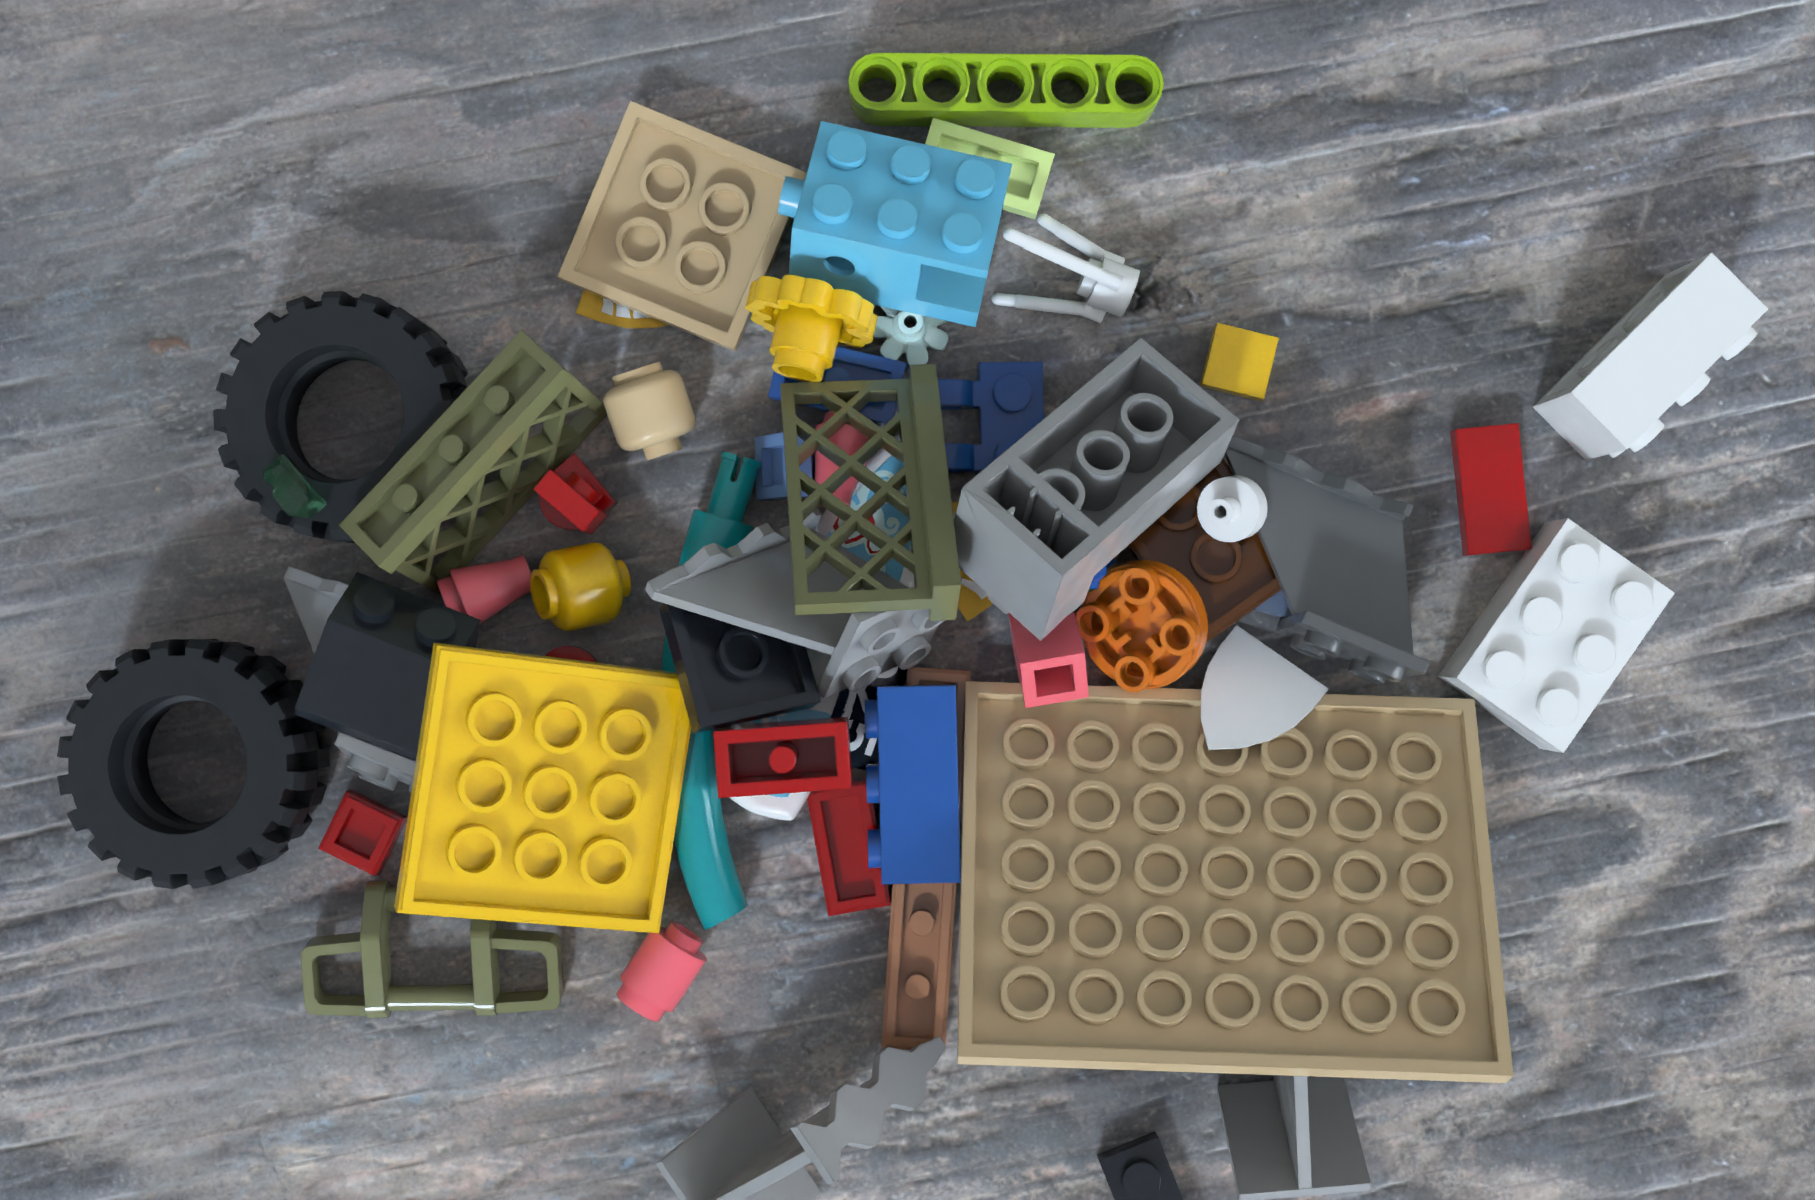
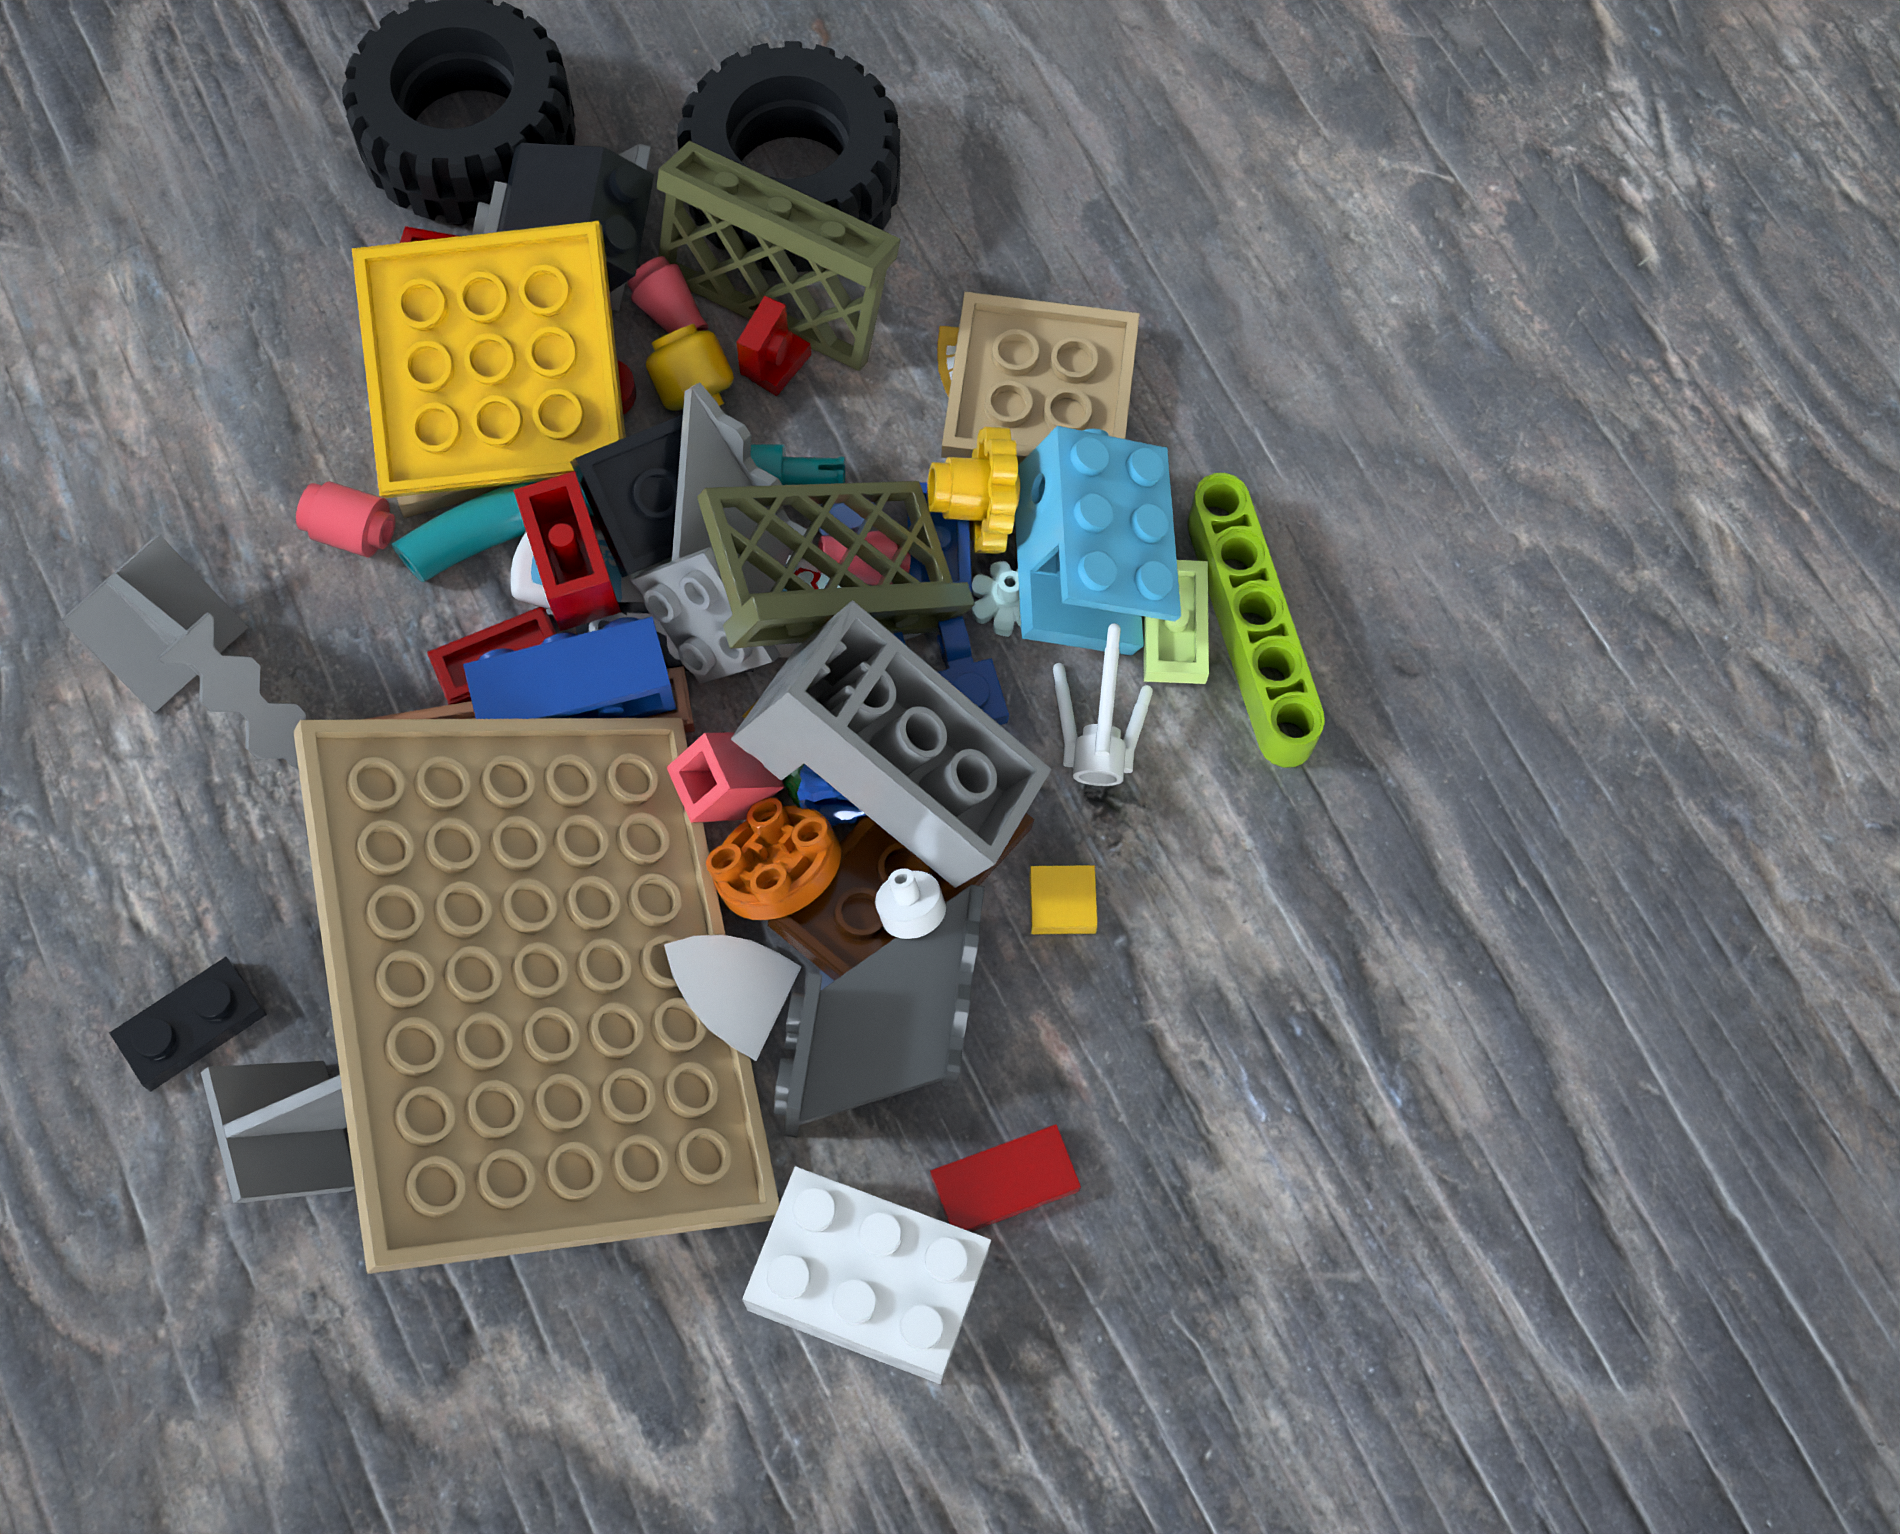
camera: 75 degrees right, 20 degrees down
(292, 489) = (710, 102): clear green tile -> none
(383, 998) = (337, 370): olive bar -> none
(649, 410) = (866, 391): tan head -> none
(1652, 359) = (1183, 1289): white brick -> none

